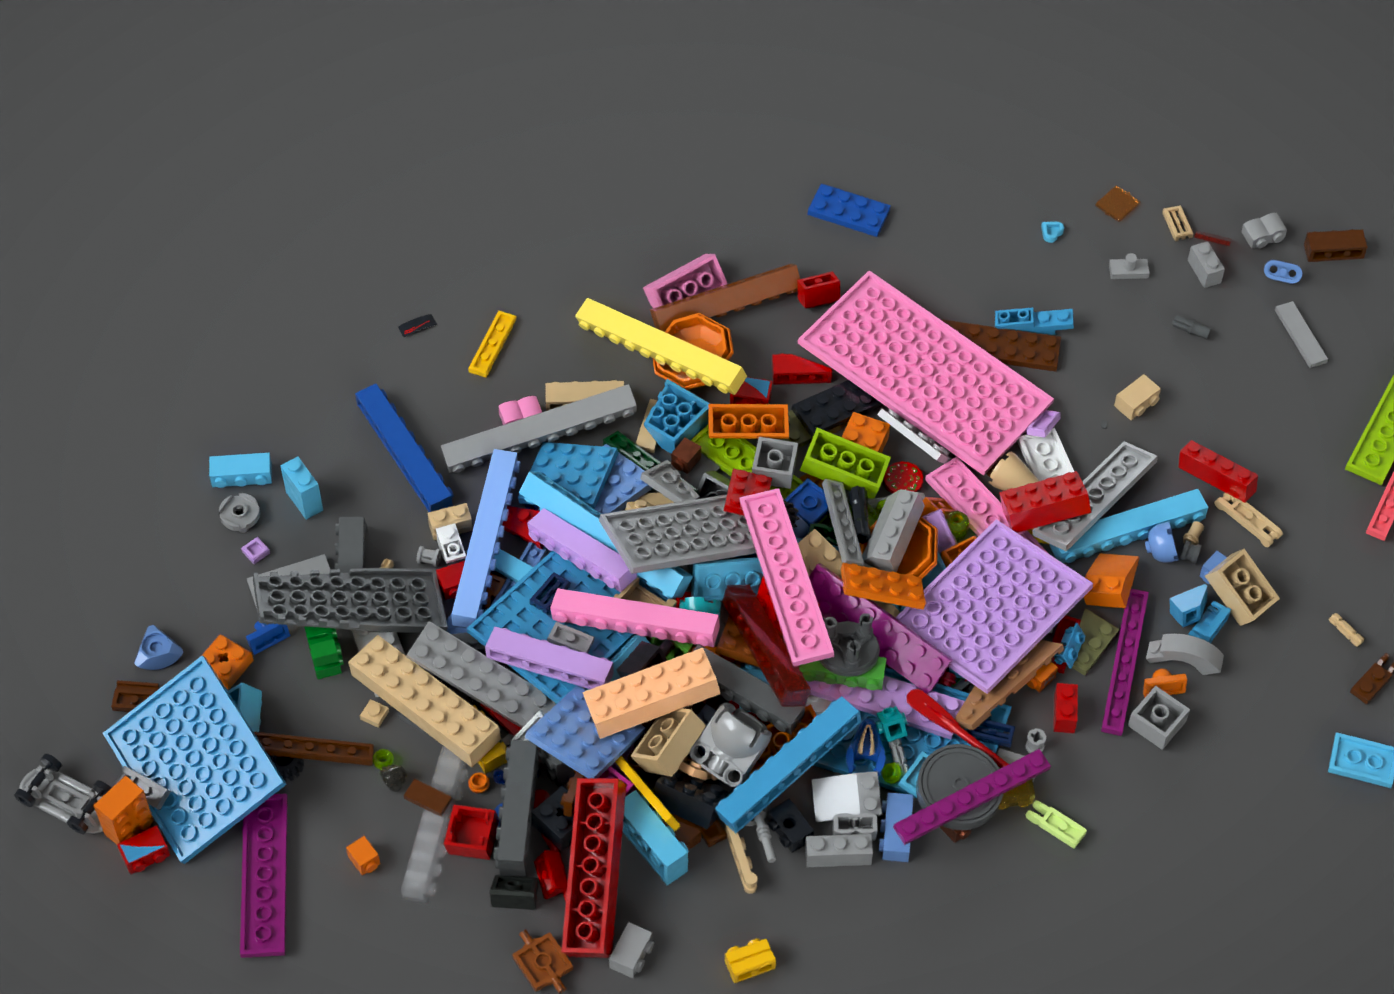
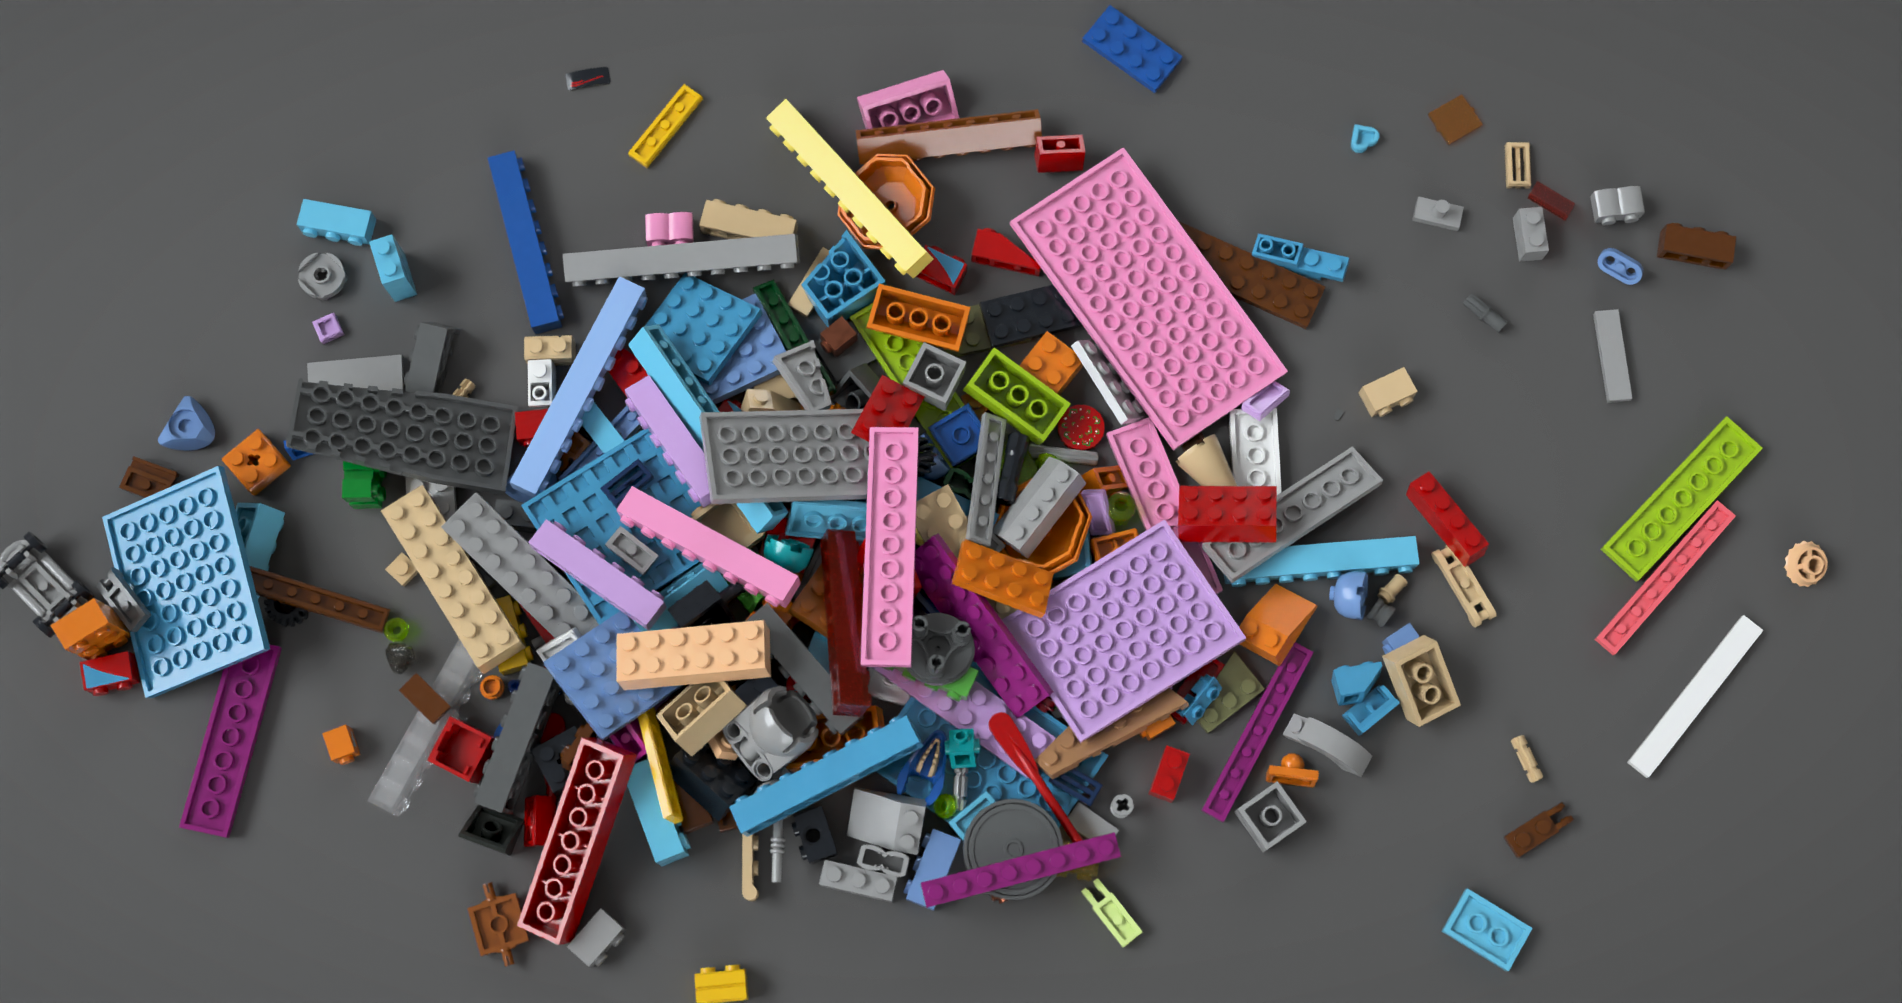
camera: 15 degrees right, 20 degrees up
(429, 556) = (514, 388): light grey bush -> none

